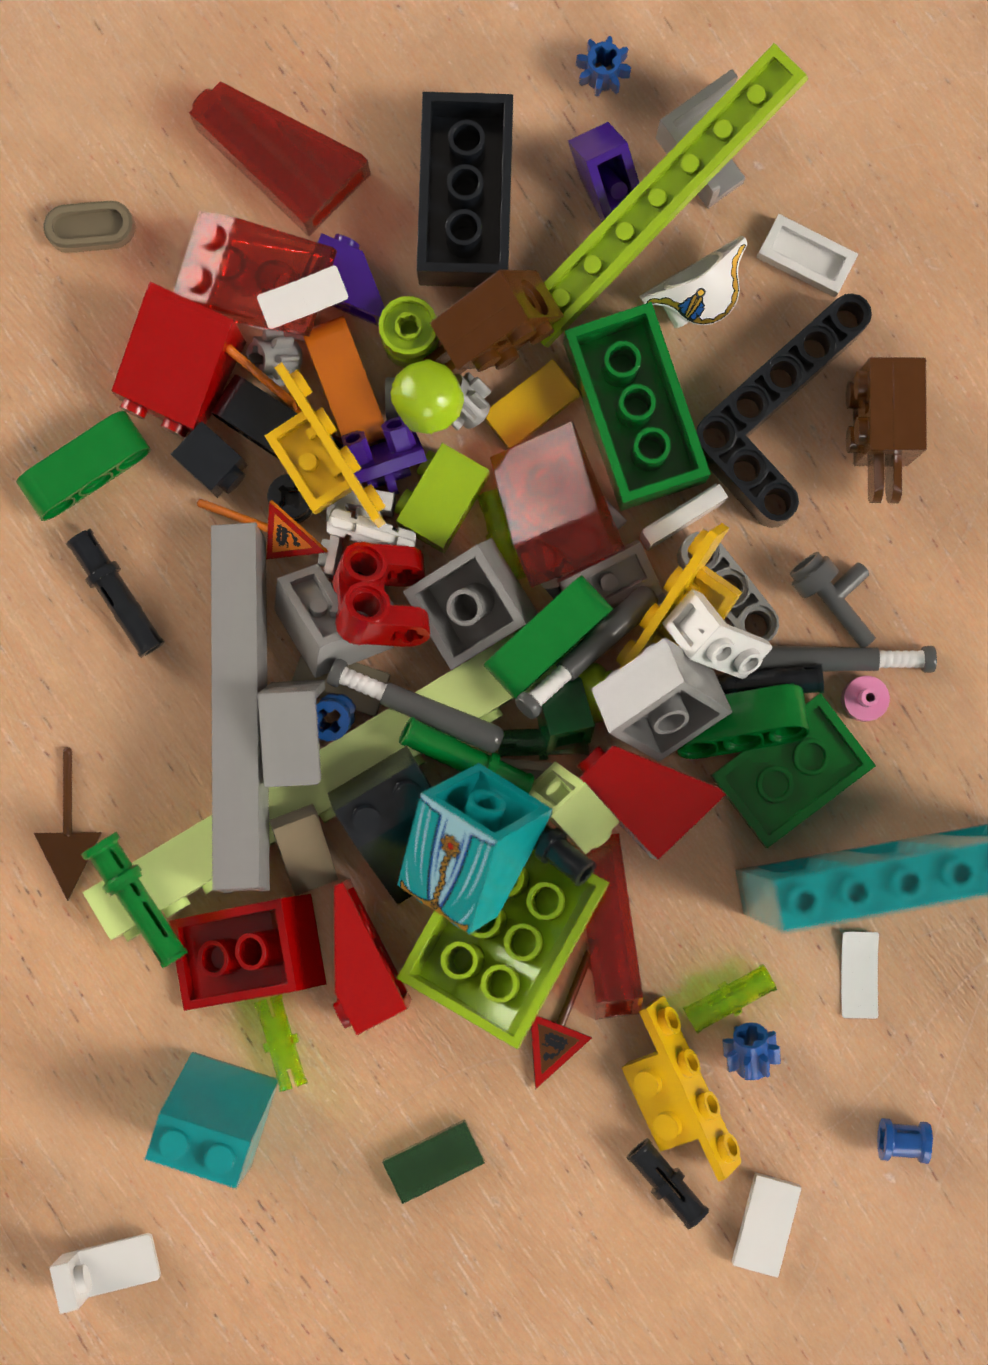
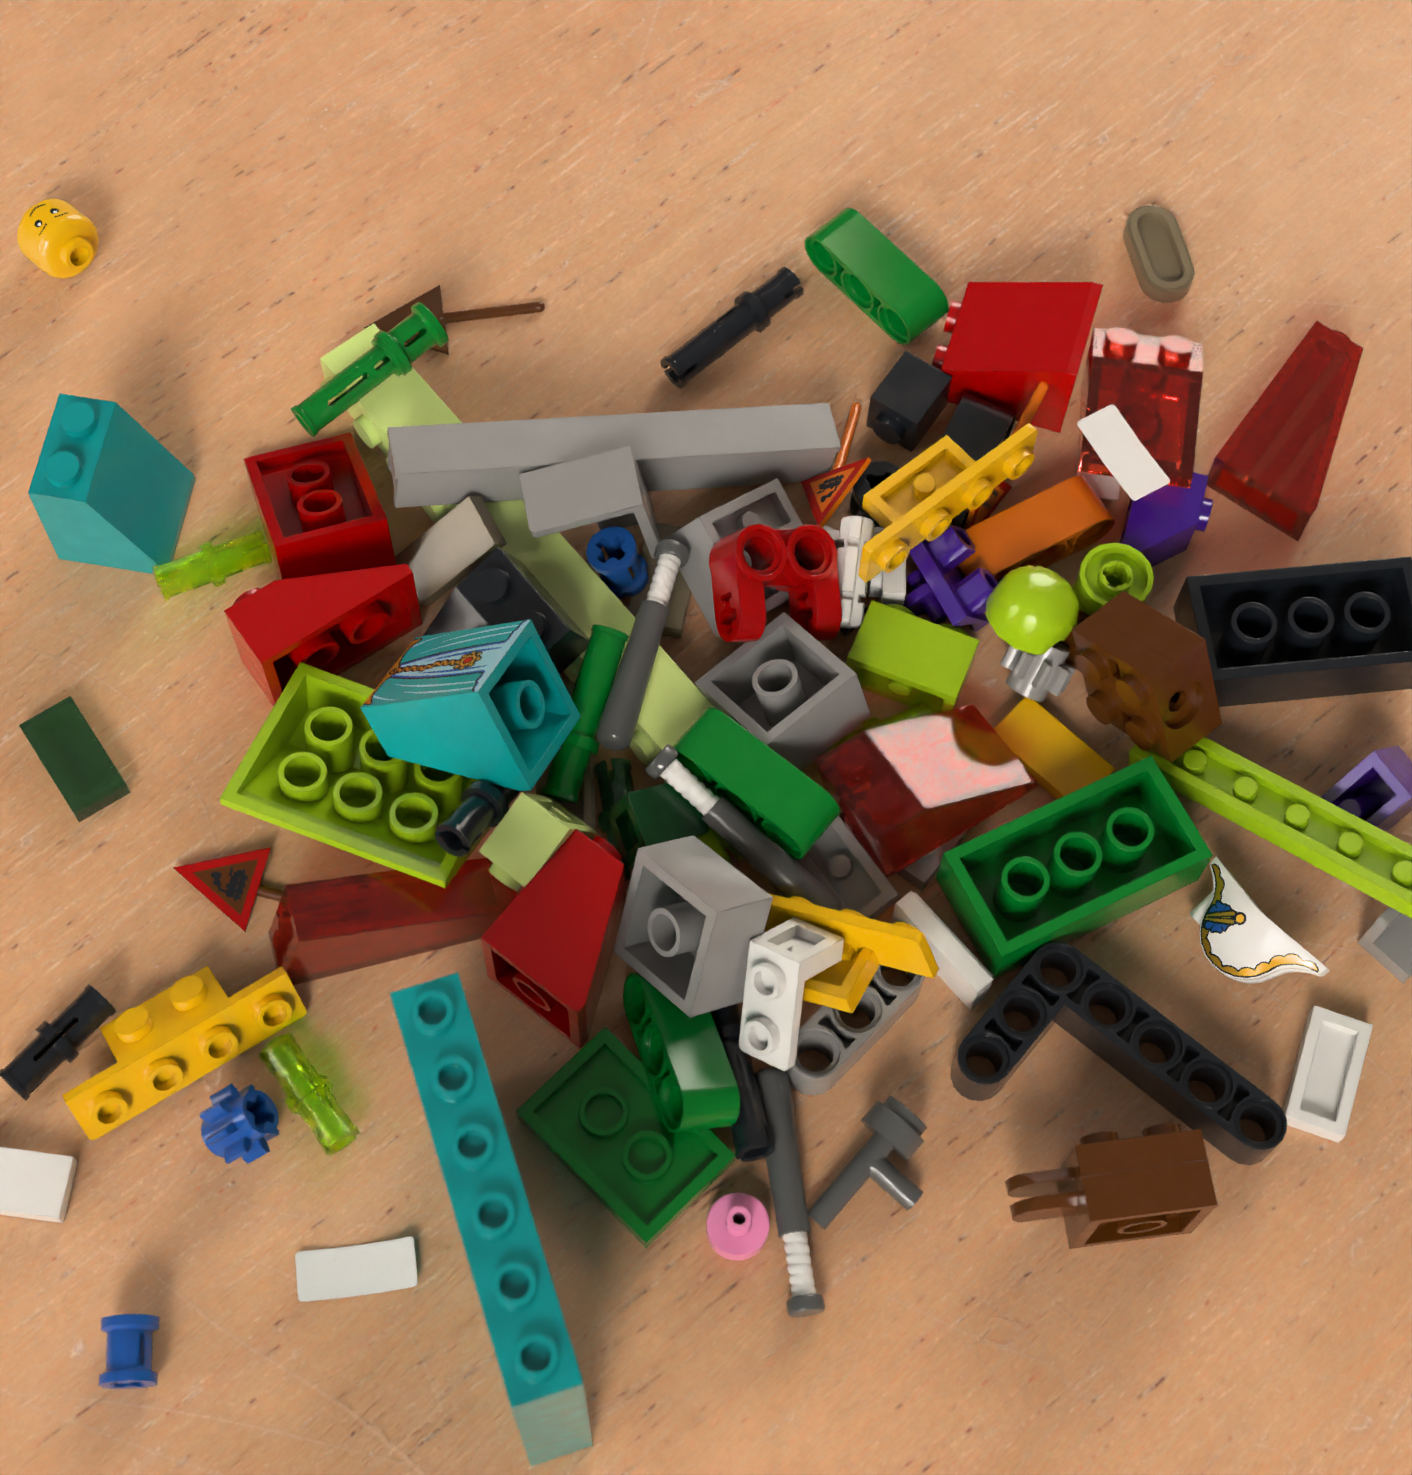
camera: 75 degrees right, 20 degrees down
(271, 350) = (1053, 453): light grey gear -> none

